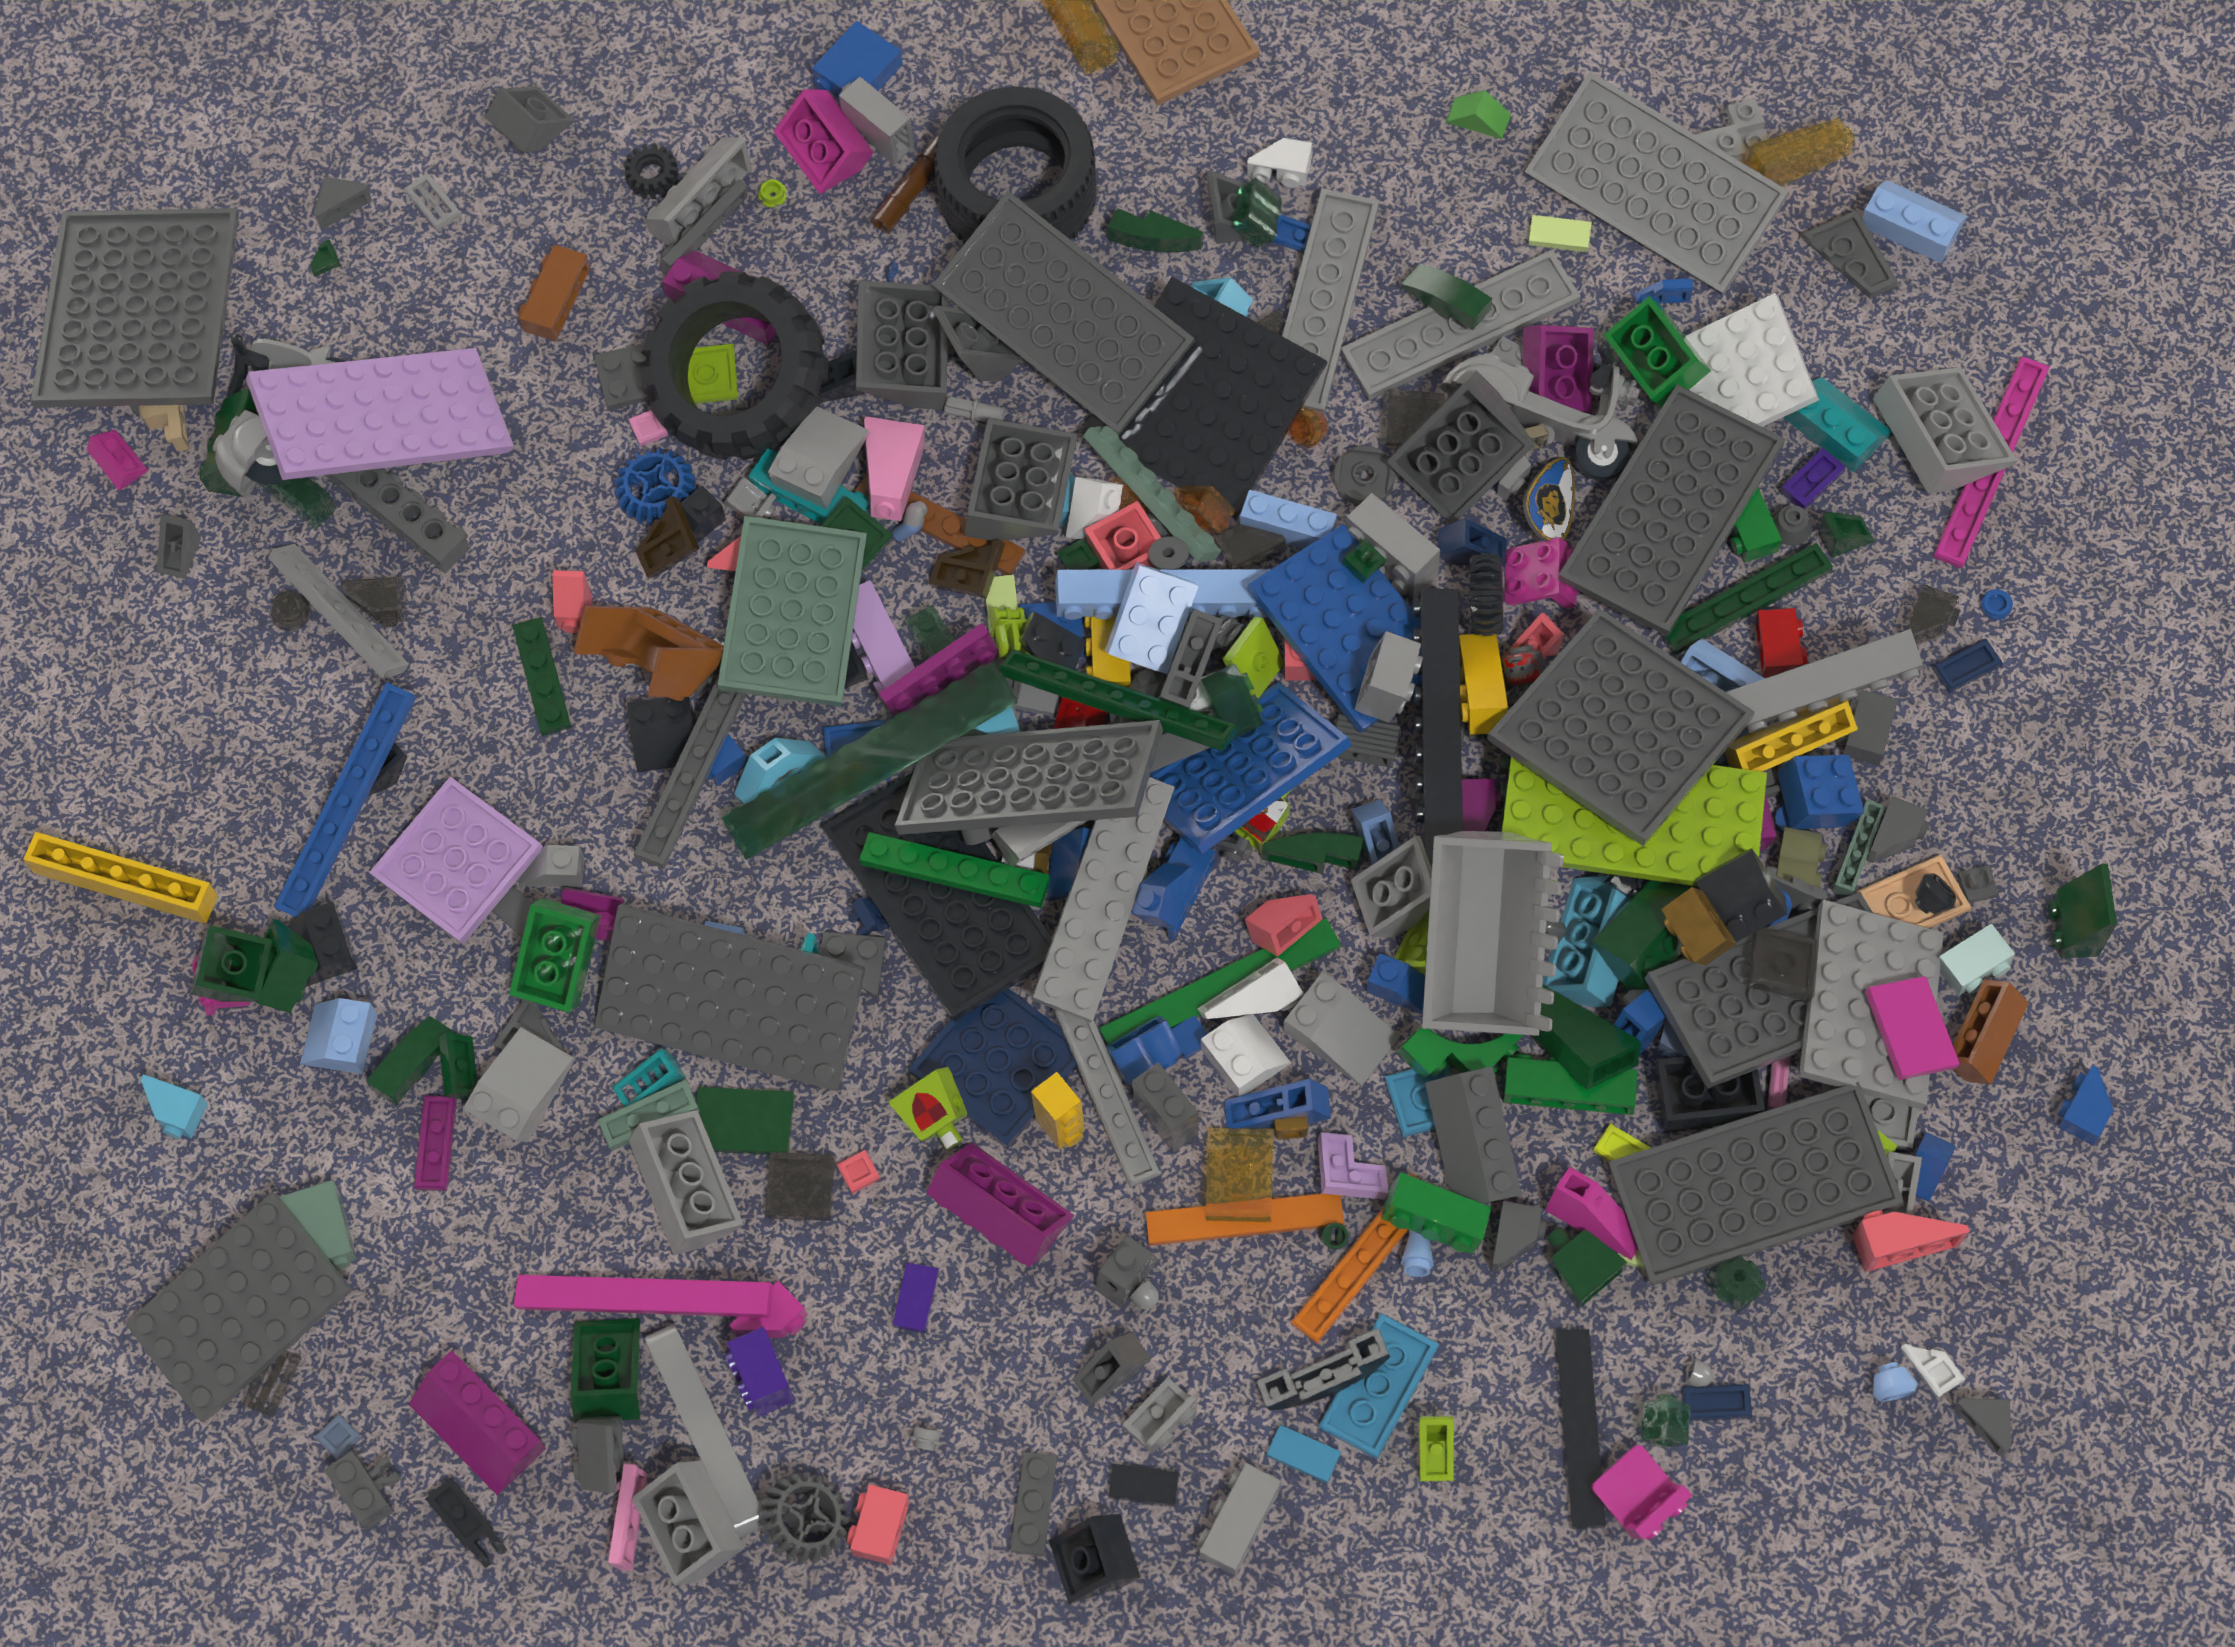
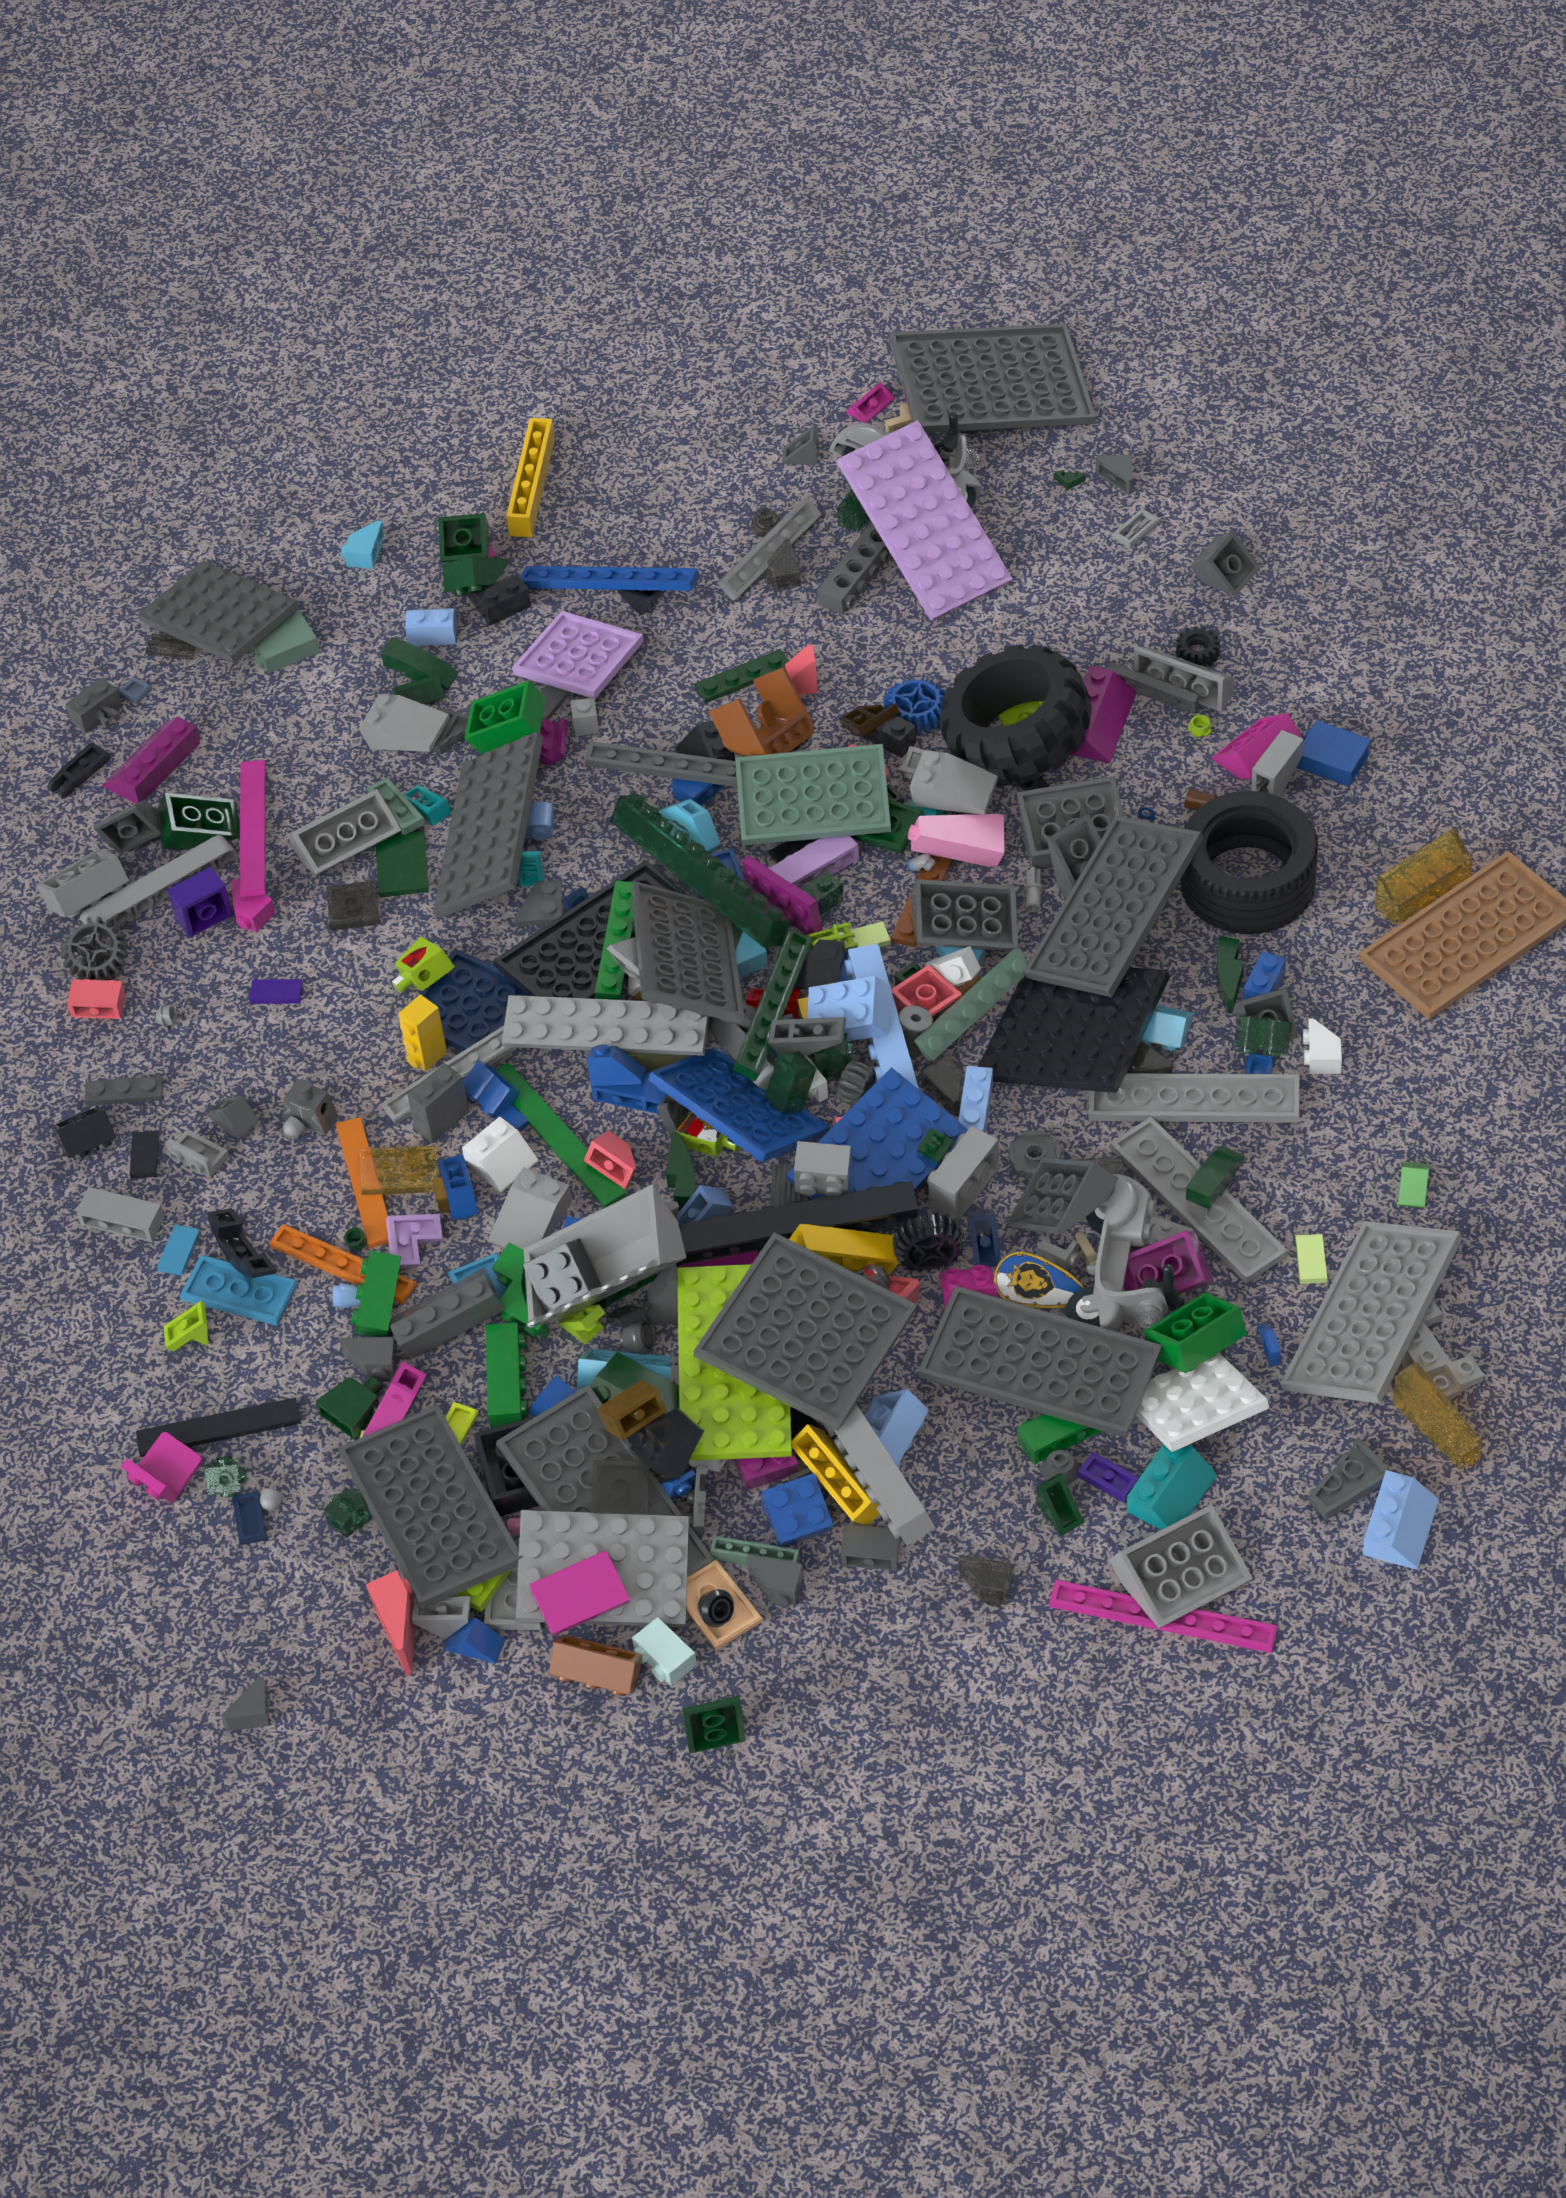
camera: 80 degrees right, 15 degrees down
(435, 1143) = (356, 695): magenta tile -> none
(554, 292) = (1070, 612): dark orange brick -> none
(627, 1519) = (65, 855): bright pink tile -> none
(858, 1171) = (371, 939): coral tile -> none
(968, 570) = (884, 907): dark brown wing -> none
(998, 1204) = (355, 1024): magenta slope -> none
(1177, 198) = (1265, 976): none -> blue brick
(1206, 506) = (973, 1047): clear orange slope -> none
(1256, 655) = (834, 1094): lime plate -> none
(1260, 992) = (547, 1152): white slope -> none
(1309, 427) = (1070, 1108): clear orange cone -> none
(1477, 985) = (562, 1274): none -> brick
(1586, 1043) = (536, 1363): dark green slope -> none
(1748, 598) = (979, 1442): dark green plate -> none
(1779, 641) = (938, 1470): red brick -> none
(1800, 856) = (732, 1510): olive brick -> none
(1893, 1383) = (276, 1634): light blue cone -> none
(1934, 1368) = (295, 1668): white tile -> none
(1967, 665) = (951, 1620): dark blue tile -> none
(1978, 884) = (739, 1650): dark grey tile -> none
(1996, 604) = (1017, 1635): blue tile -> none
(2089, 1110) = (540, 1753): blue slope -> none

